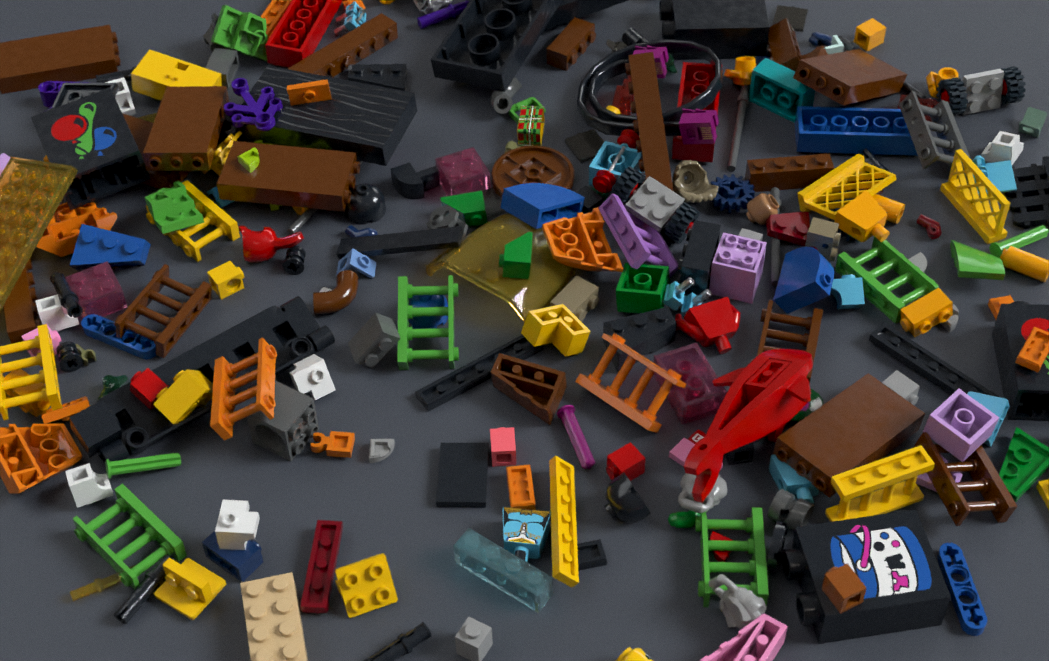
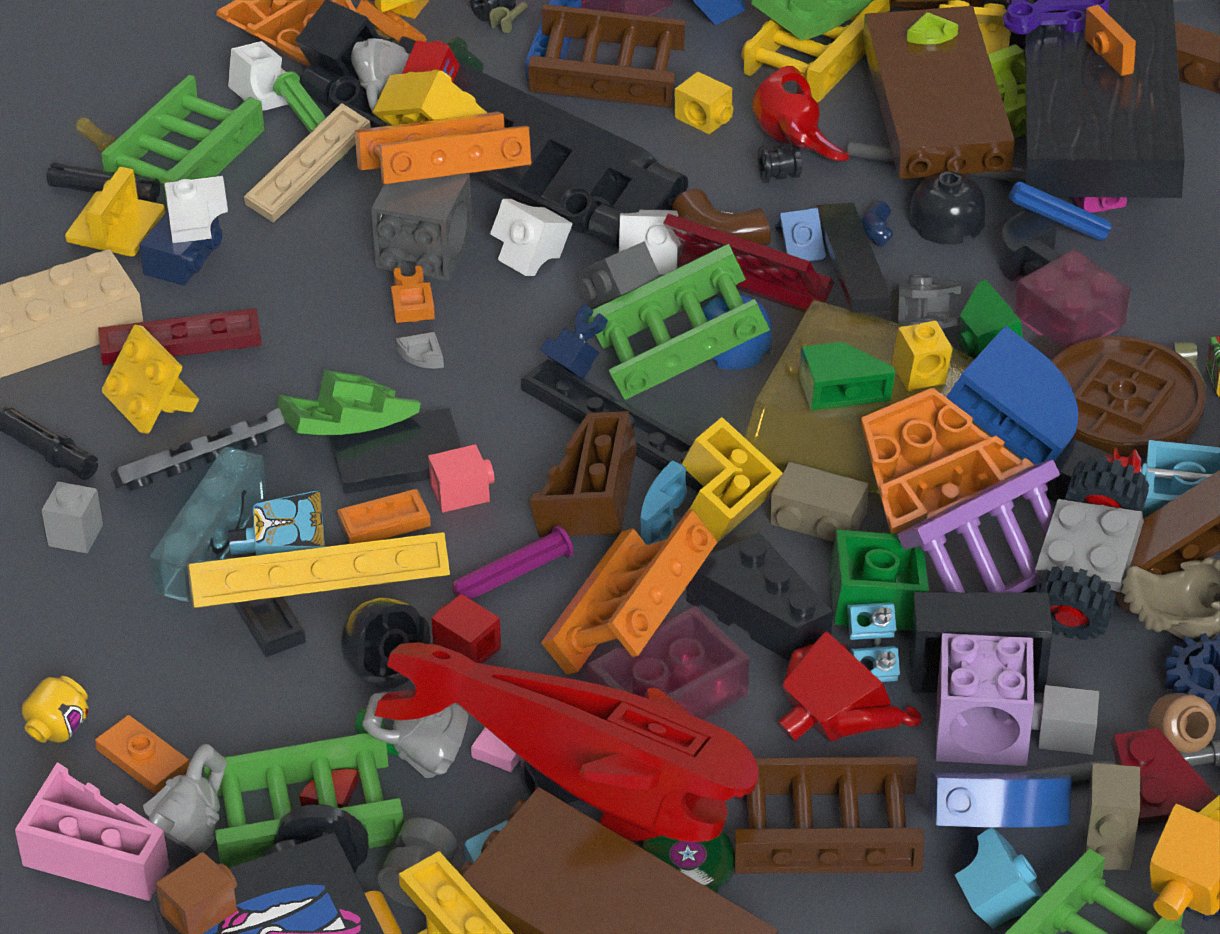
camera: 75 degrees right, 5 degrees down
(136, 414) = (374, 63): none -> light grey piece
(187, 473) = (306, 163): none -> tan tile
(341, 321) = (649, 227): none -> white brick
(385, 287) = (767, 271): none -> dark red fence
(398, 159) = (1060, 211): none -> blue axle
(418, 376) = (571, 349): none -> dark blue piece
(424, 491) = (346, 406): none -> bright green slope
(436, 562) = (178, 461): none -> wing
(513, 222) = (922, 355): none -> yellow brick
(560, 362) = (664, 494): none -> dark azure slope
(673, 632) = (141, 754): none -> orange plate

